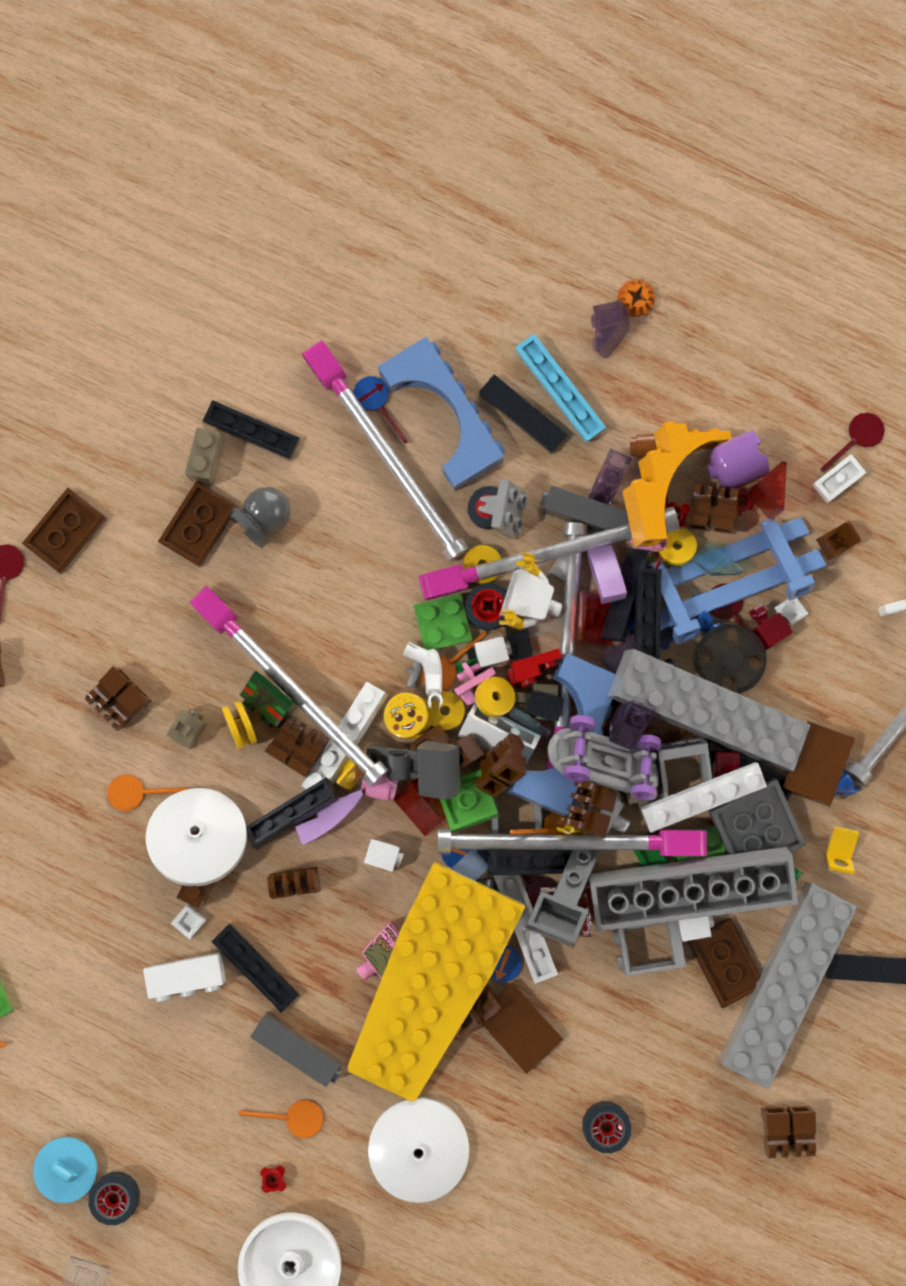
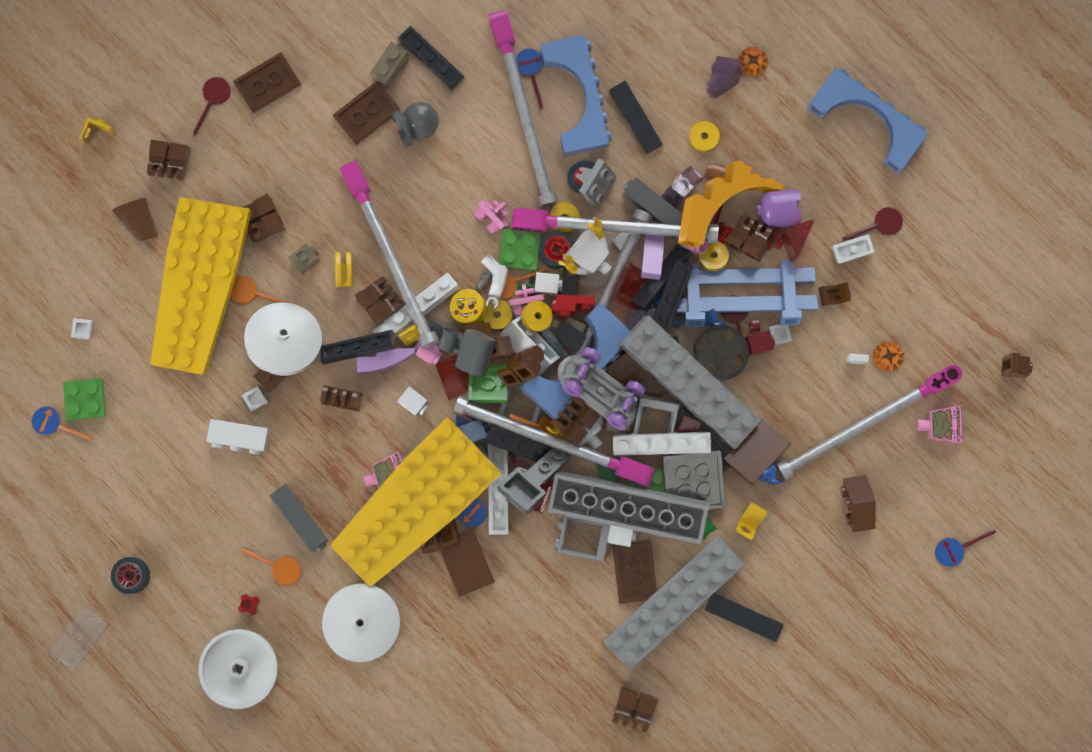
camera: 20 degrees right, 0 degrees up
(65, 1169) = (102, 542): medium azure shield -> none
(67, 806) = (197, 282): none -> yellow wing
(255, 967) = (291, 449): black tile -> none
(267, 700) = (370, 258): dark green slope -> none
(386, 588) = (487, 209): none -> bright pink hips
(560, 388) = (670, 108): medium azure plate -> none
(617, 1134) = (499, 666): wheel -> none
(620, 400) = (710, 130): none -> yellow piece
(629, 723) = (626, 369): clear purple slope -> none
(716, 562) = (737, 277): clear light blue tile -> none
(847, 321) = (842, 90): none -> medium blue arch

